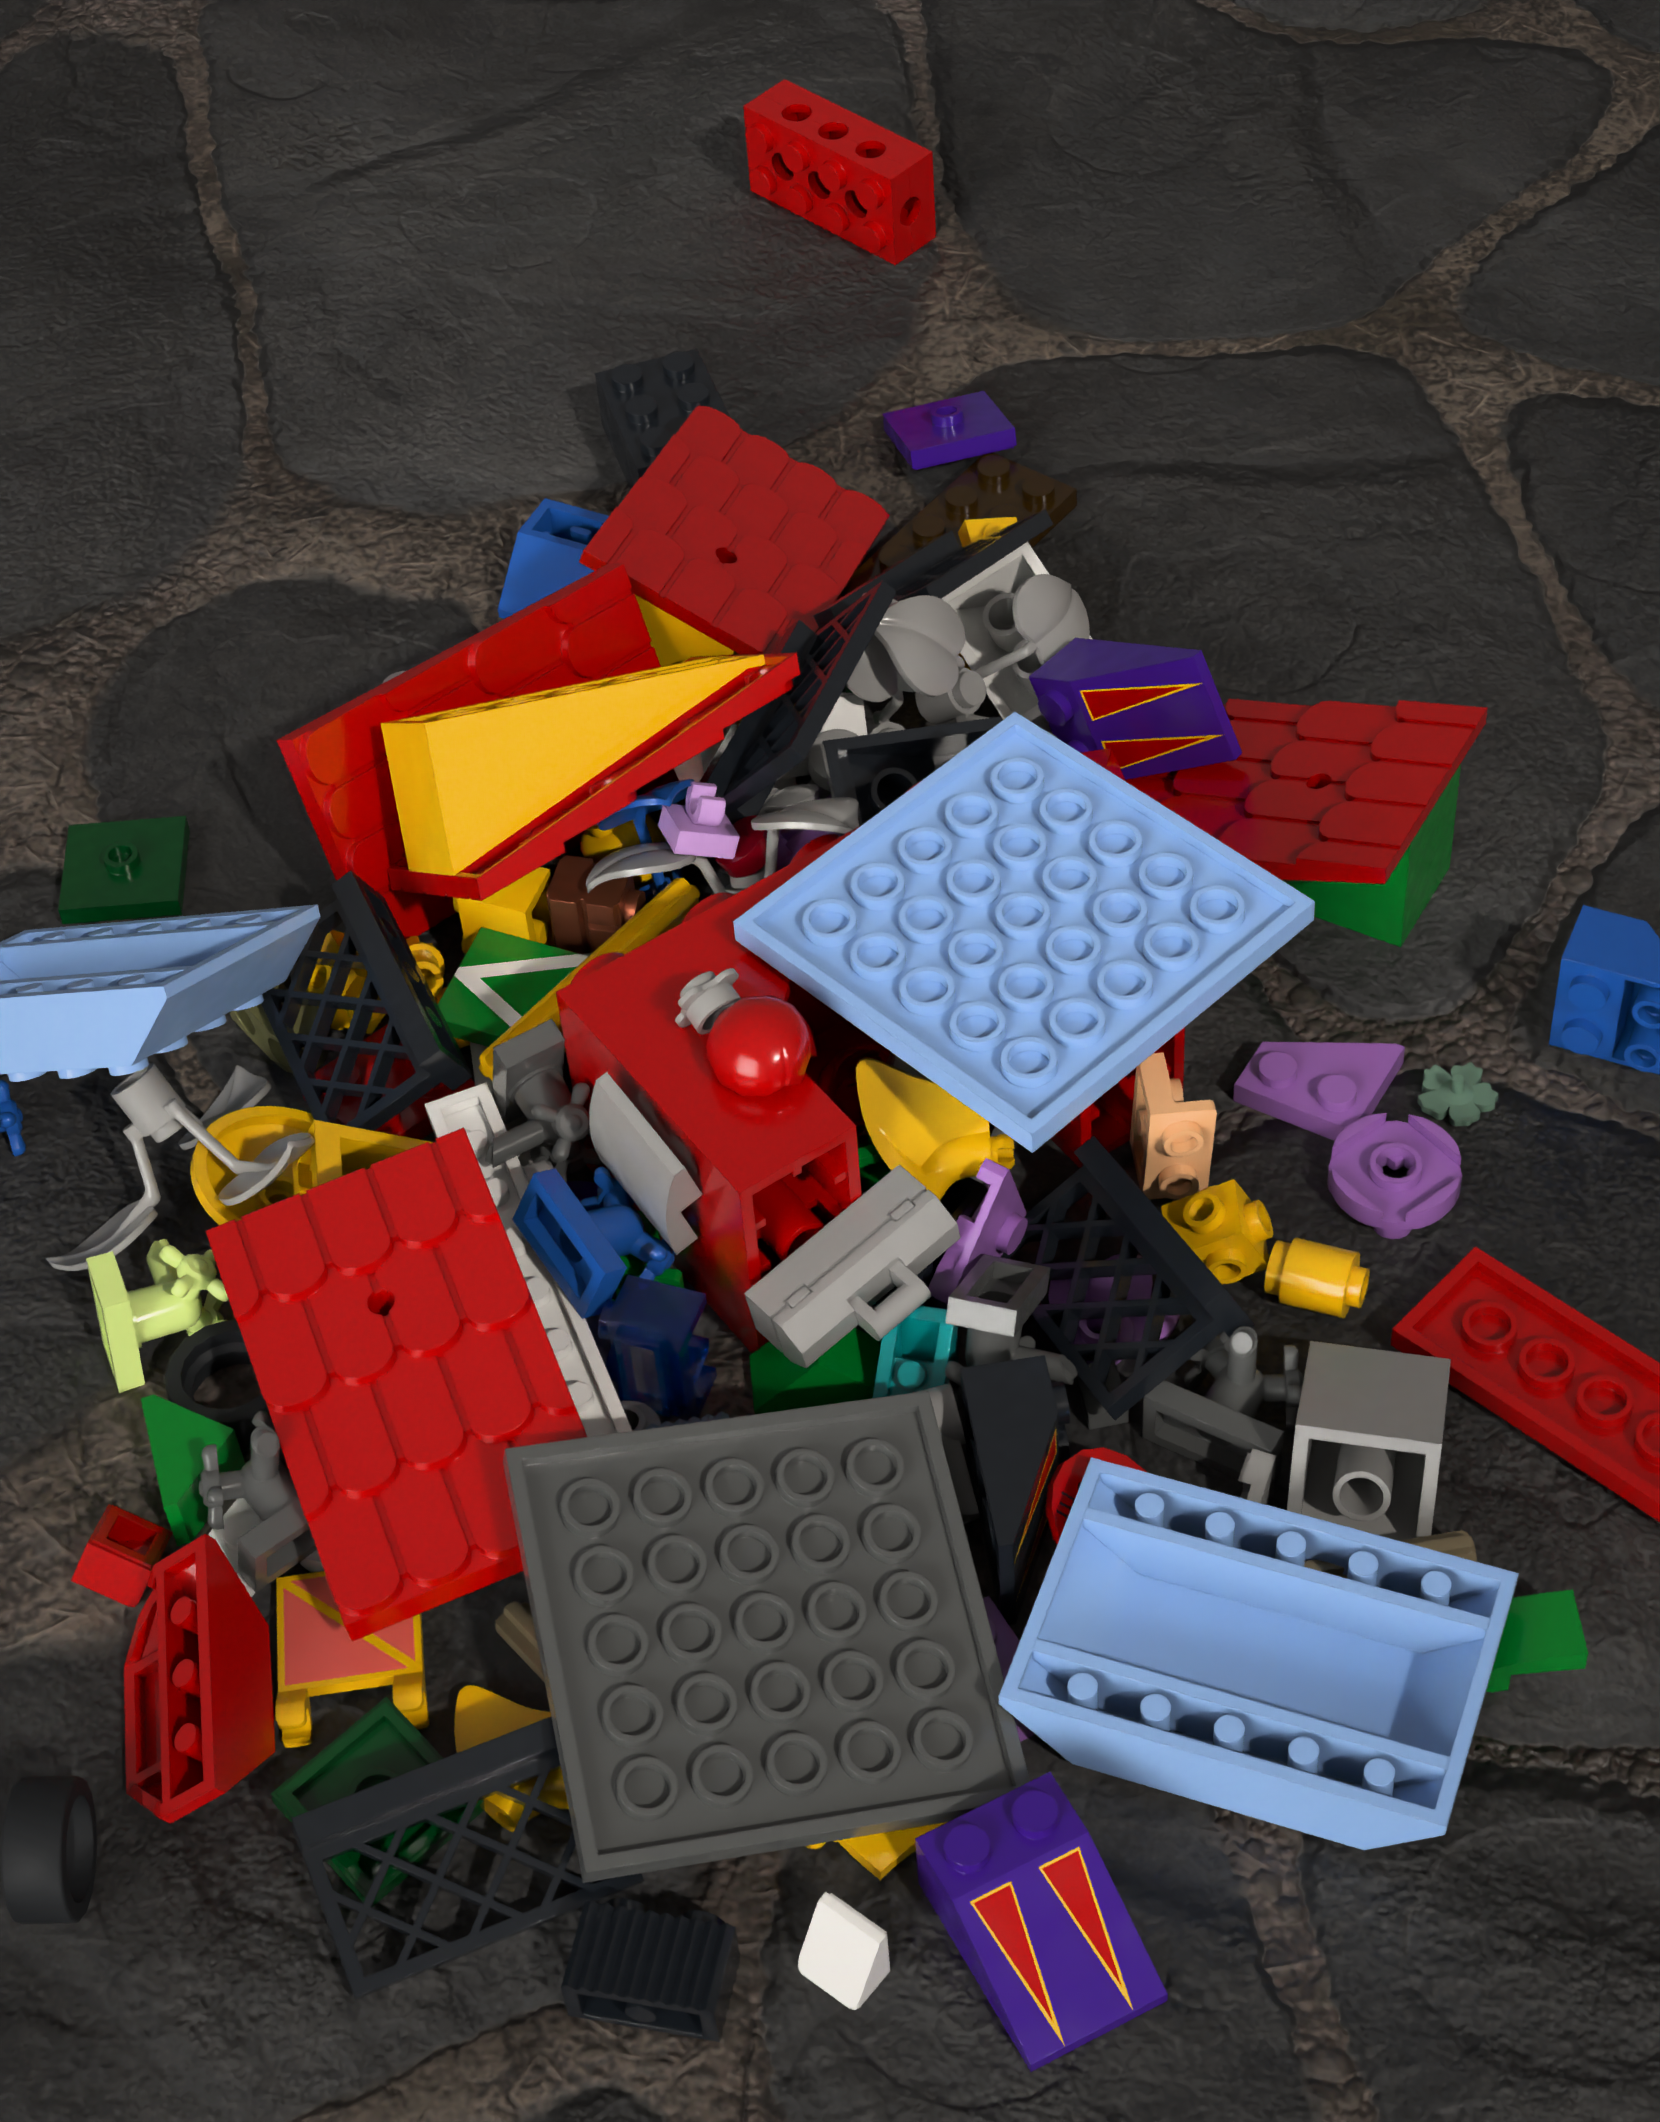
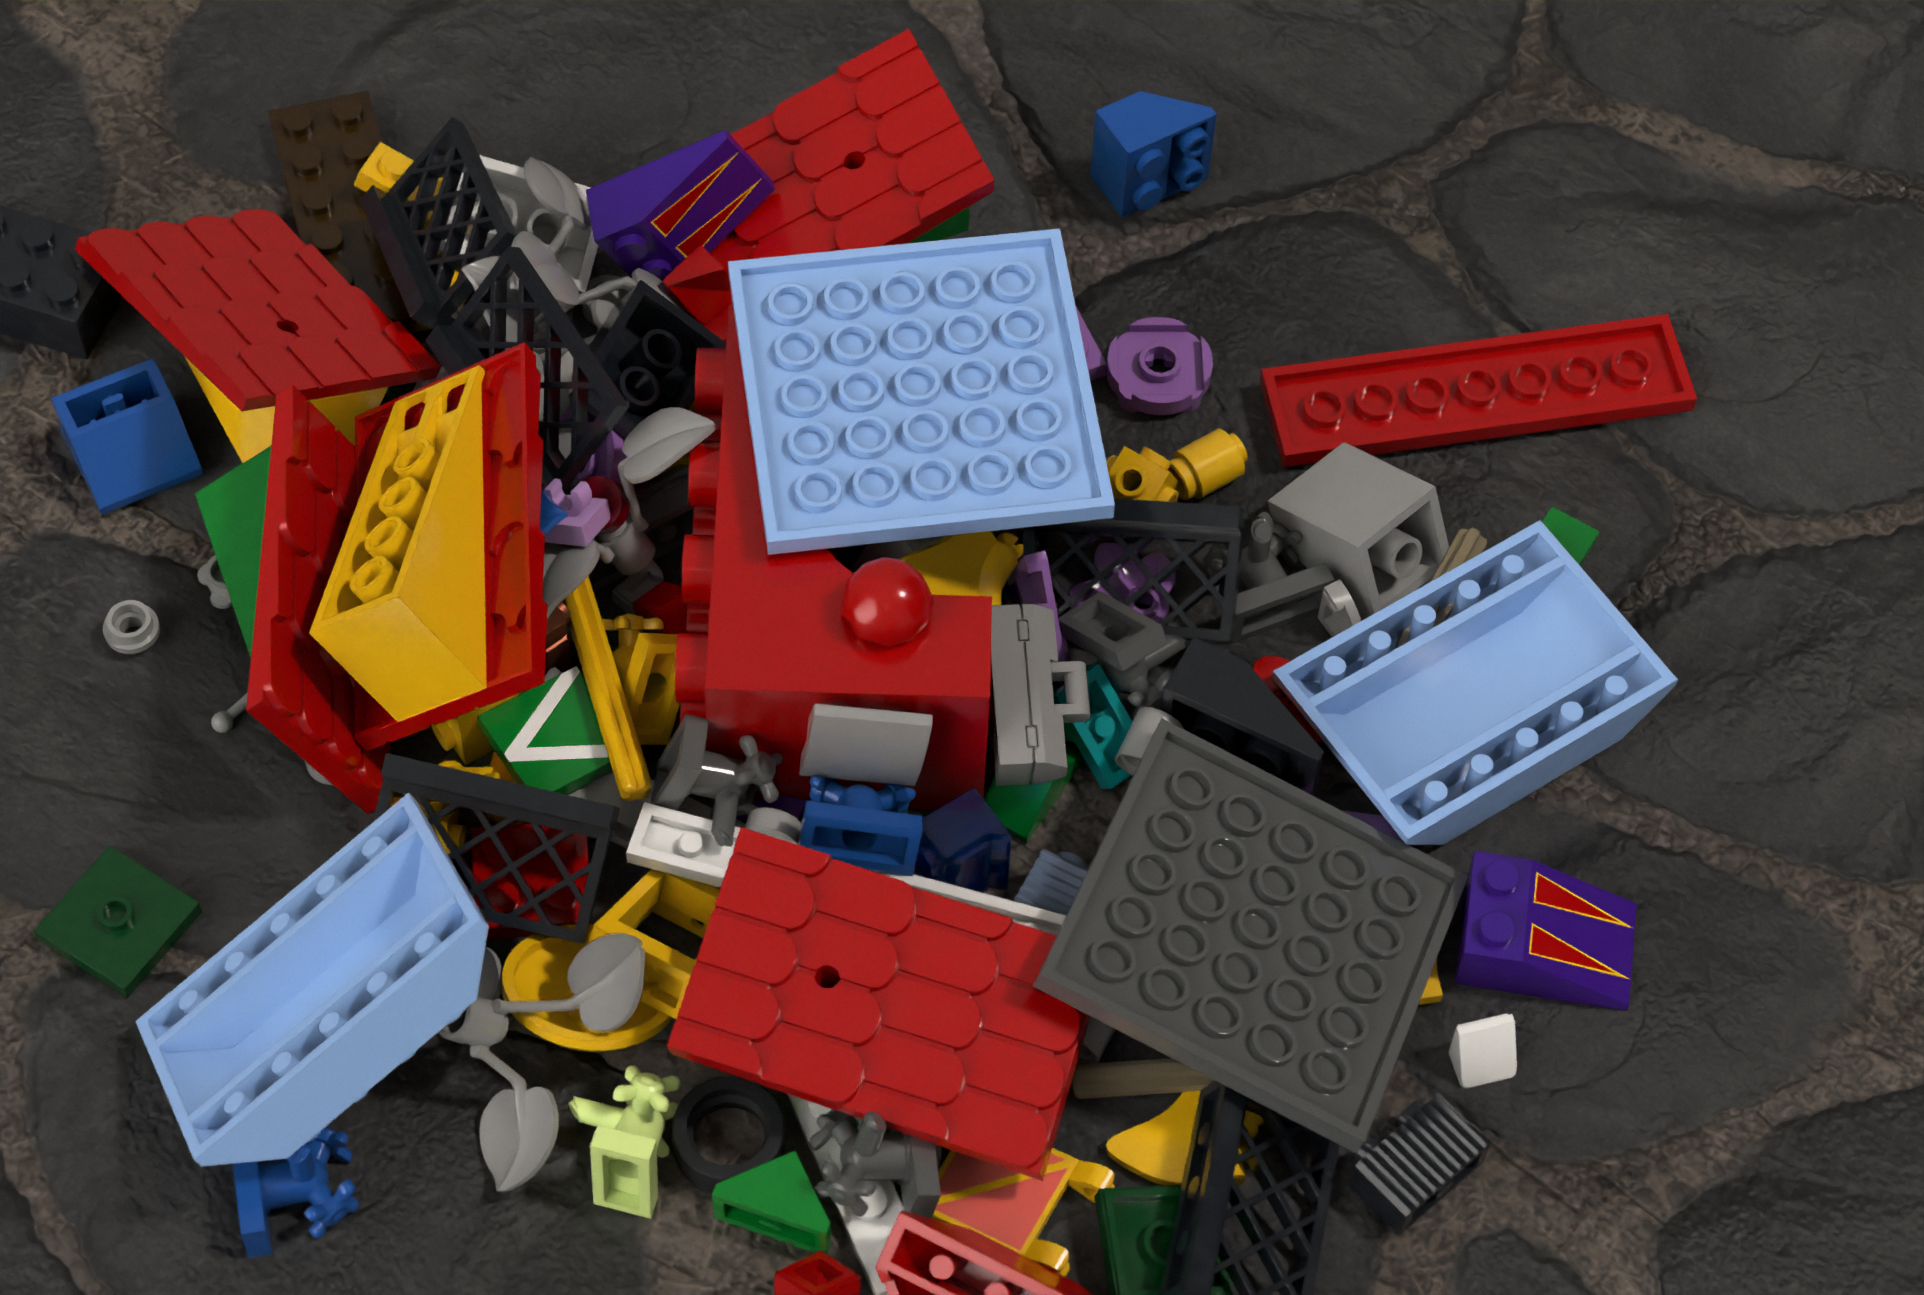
camera: 60 degrees left, 10 degrees up
(706, 998) = (823, 603): light grey plate -> none
(949, 430) = (222, 117): dark purple plate -> none
(1456, 1094) = (1119, 292): sand green plant -> none

